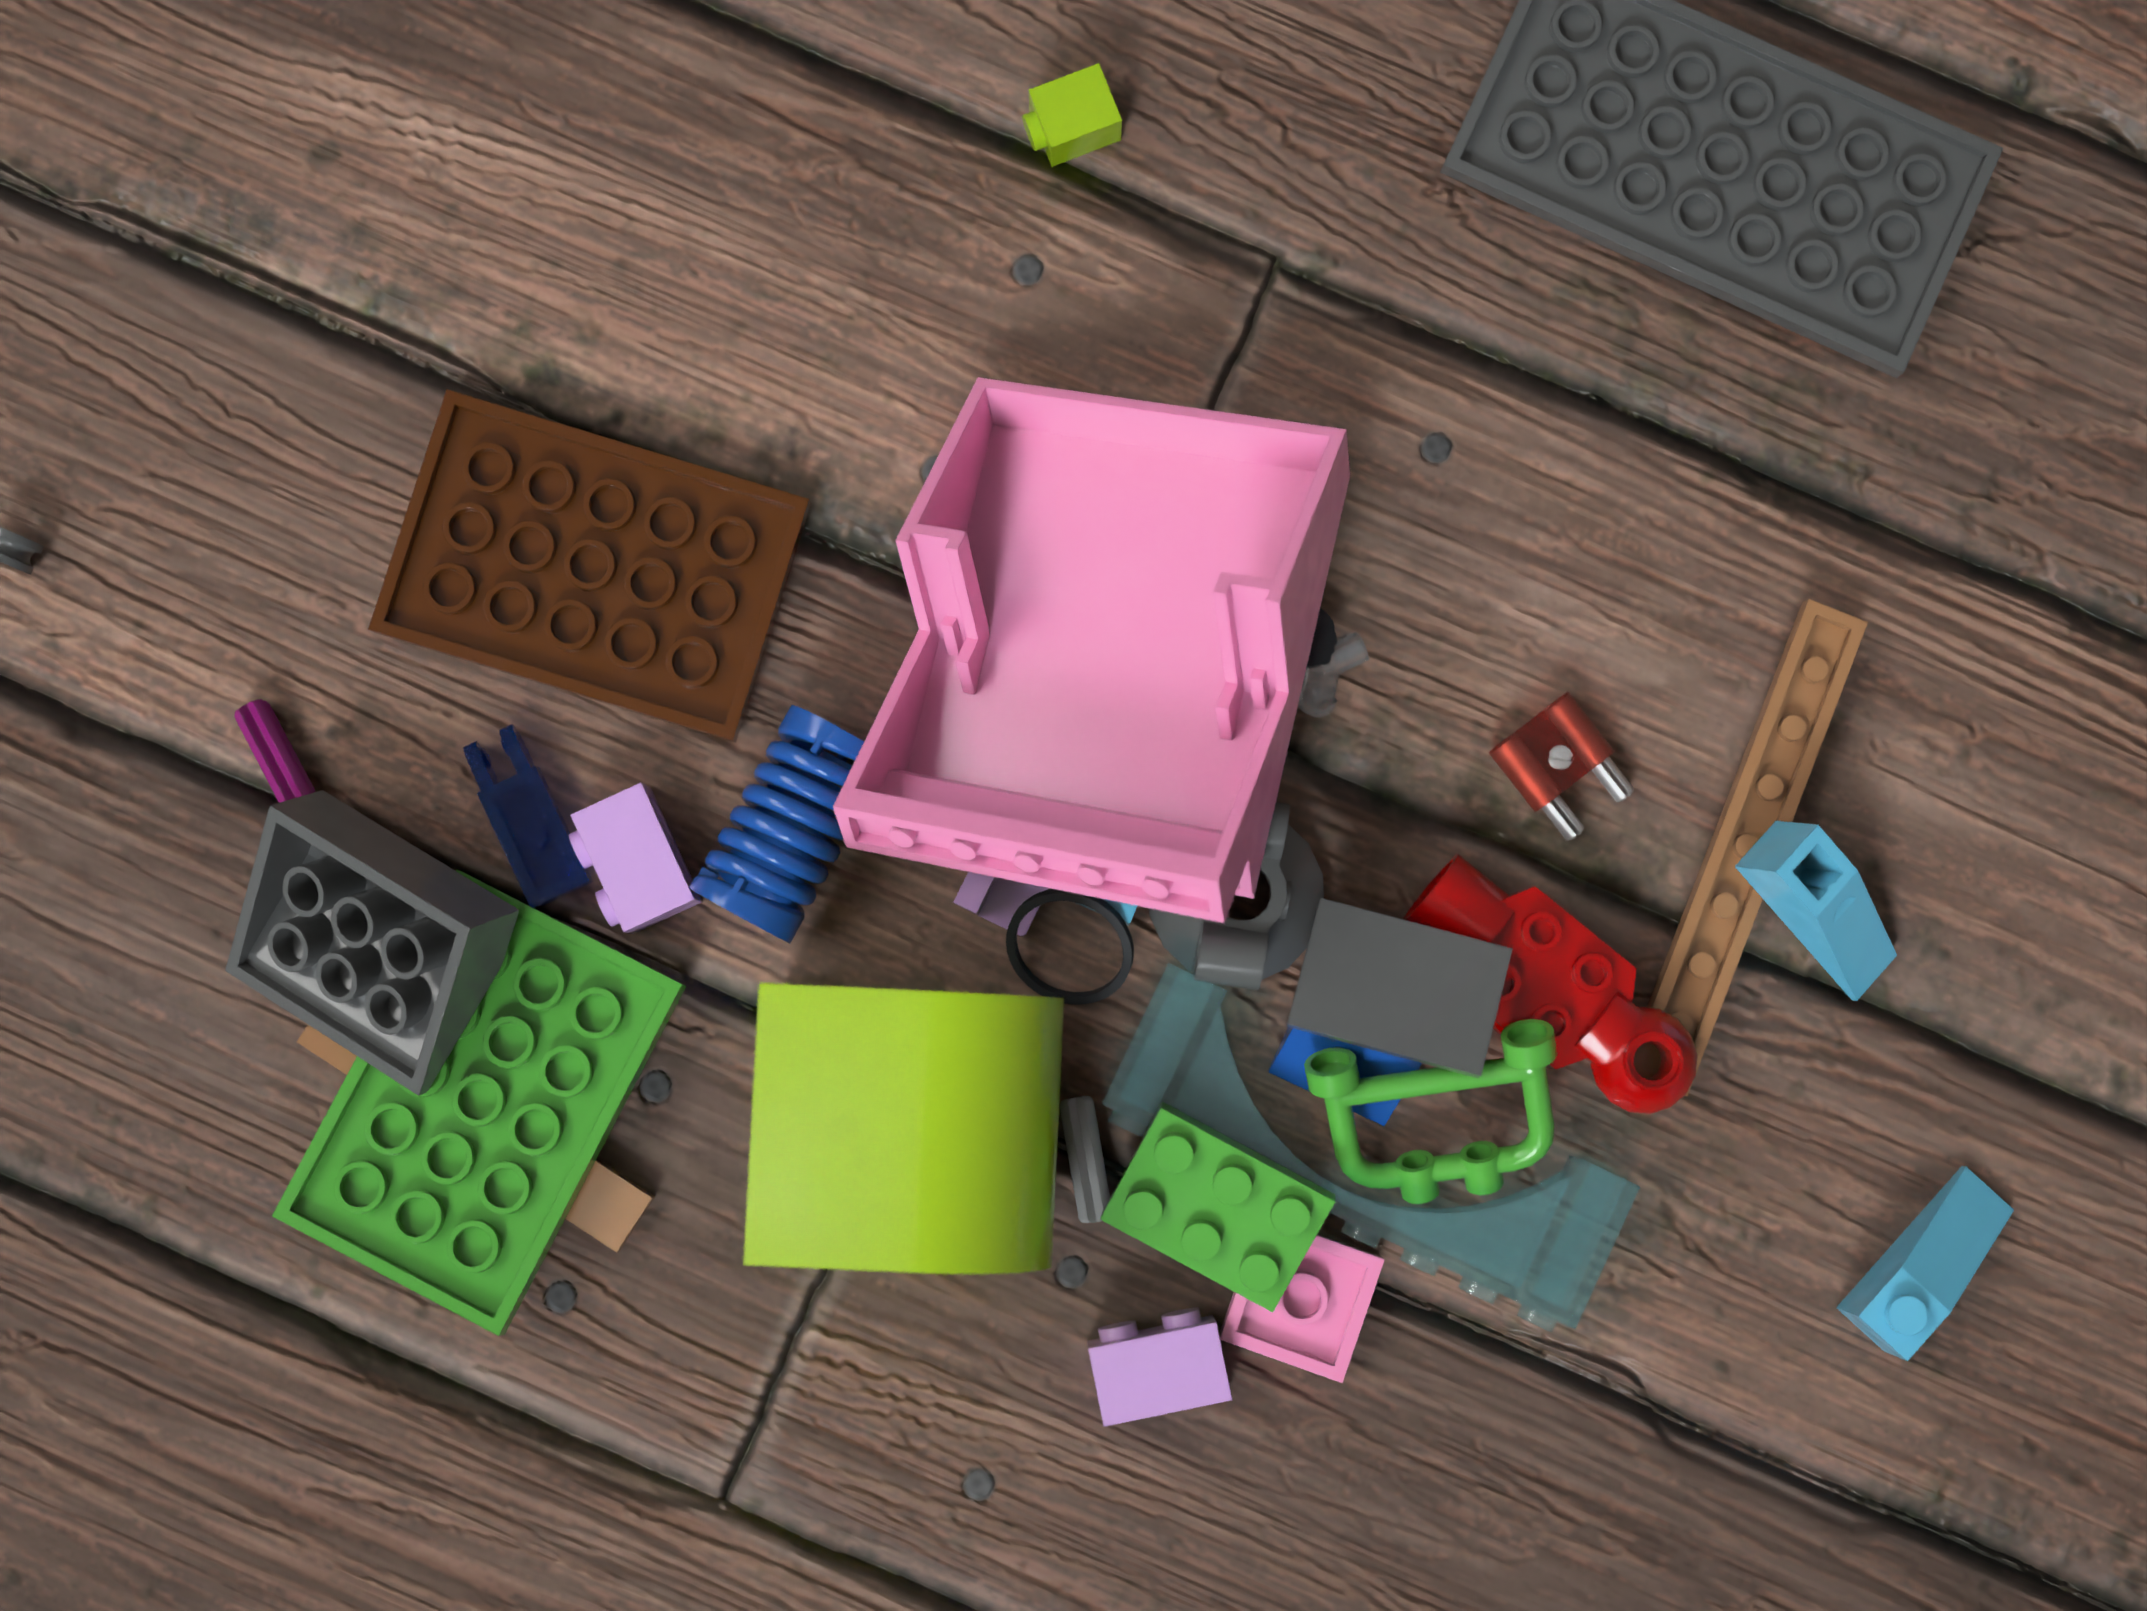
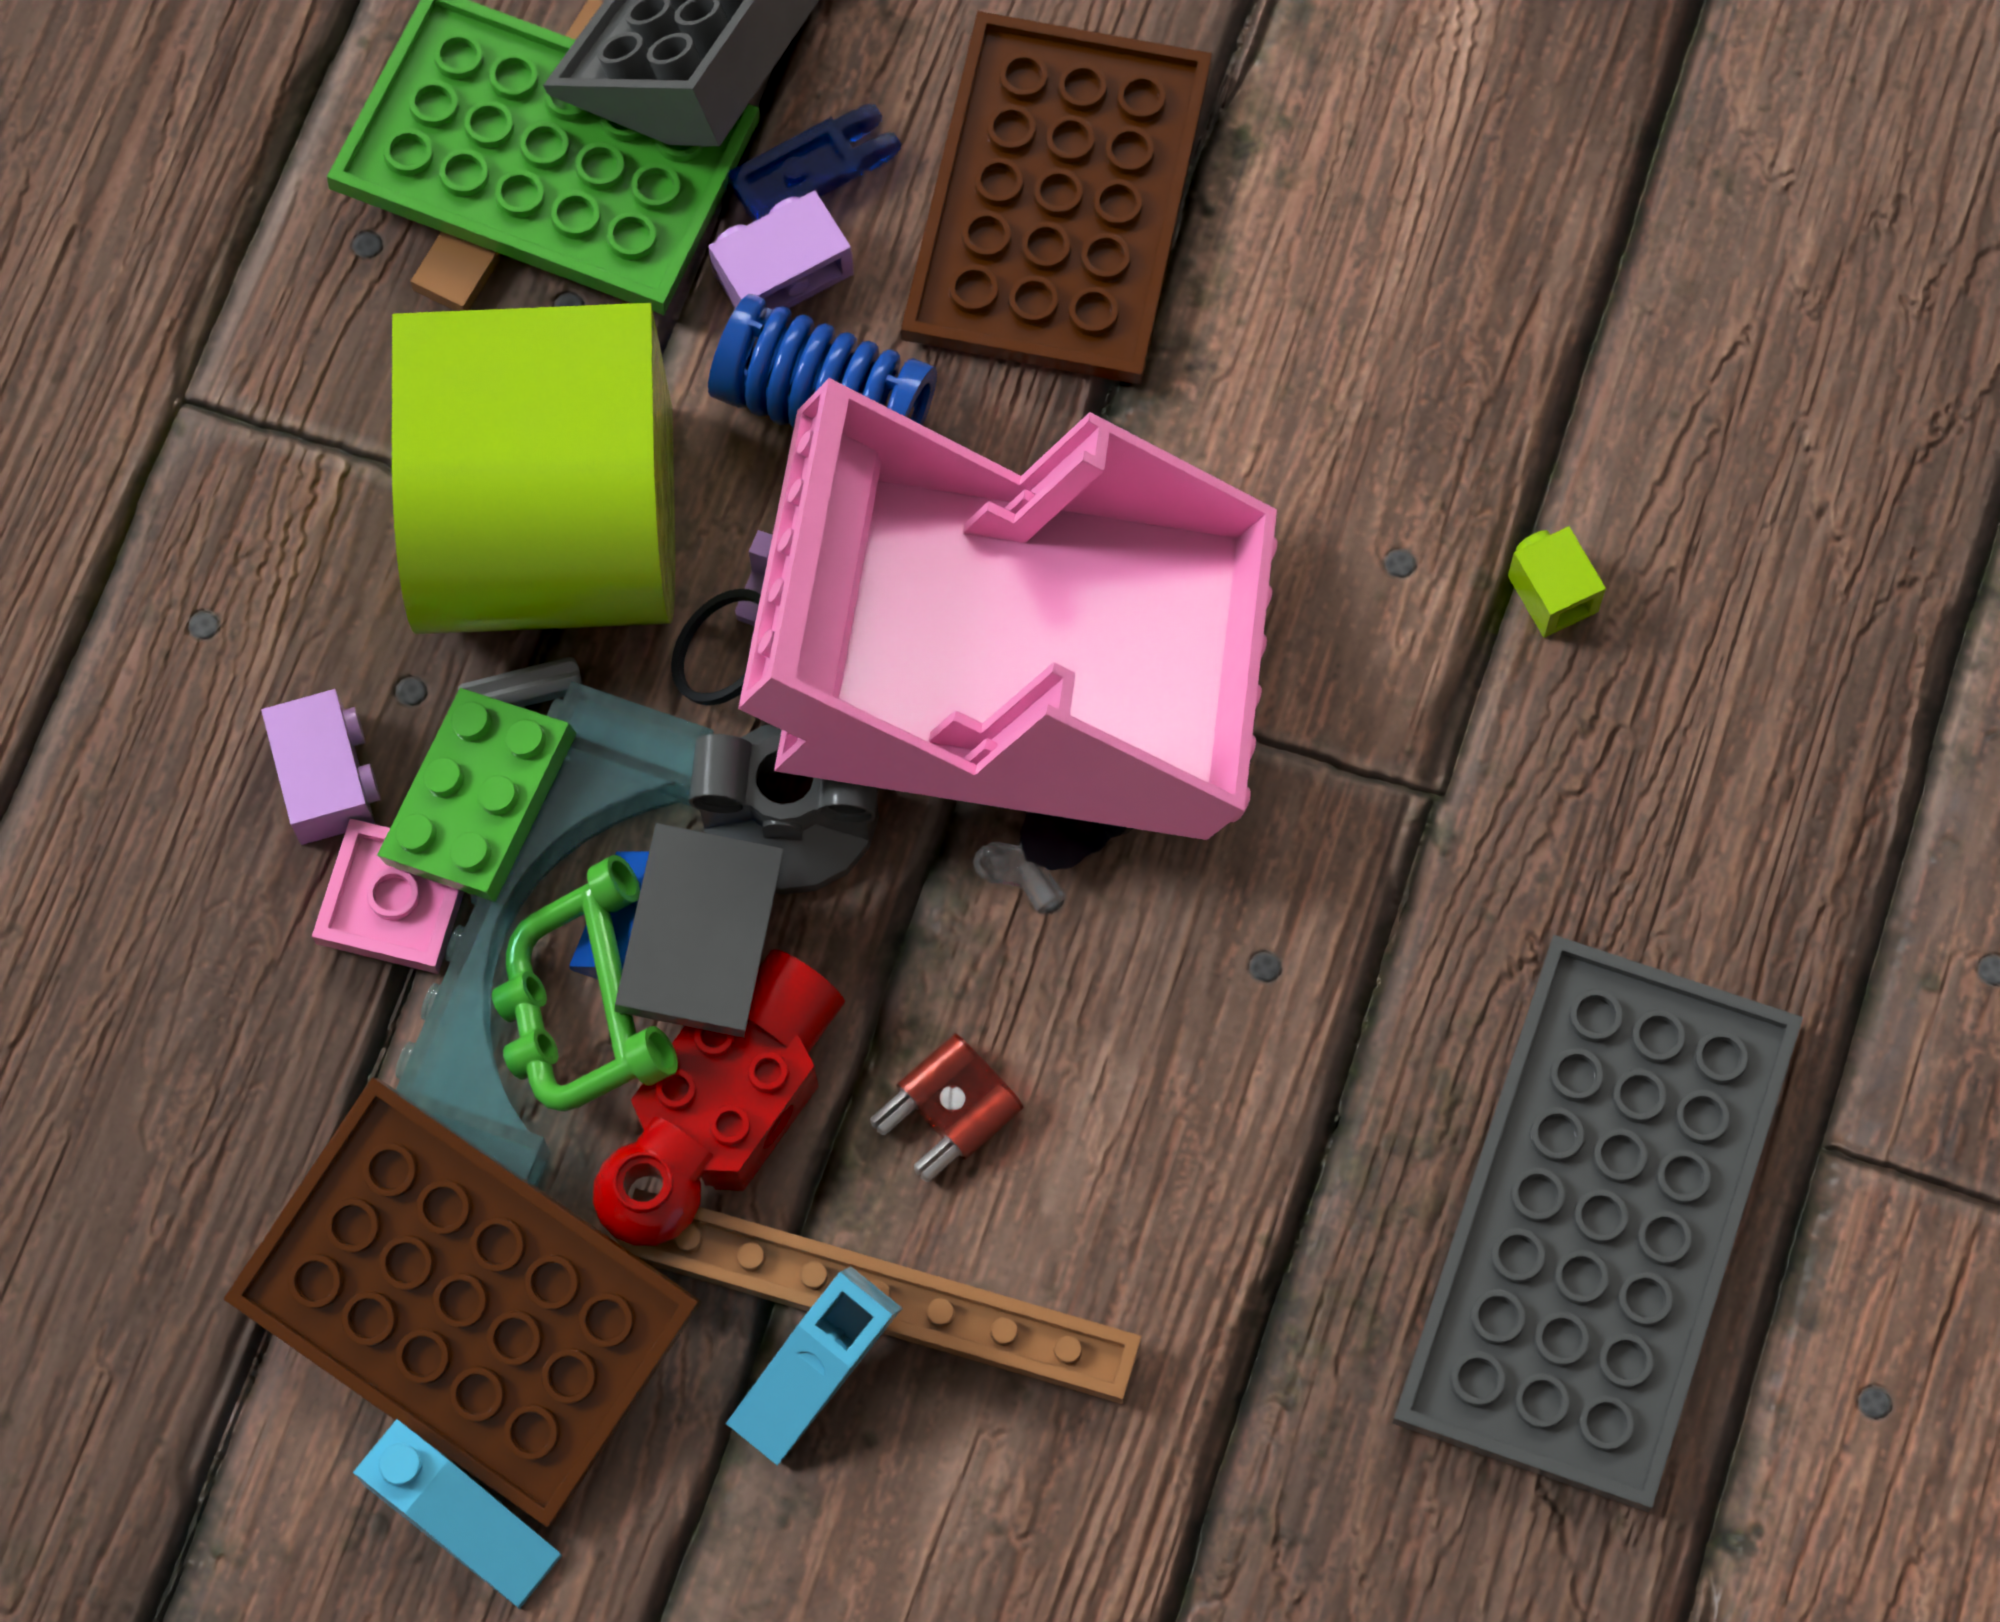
camera: 90 degrees right, 15 degrees down
(1736, 1247) = (462, 1301): none -> reddish brown plate

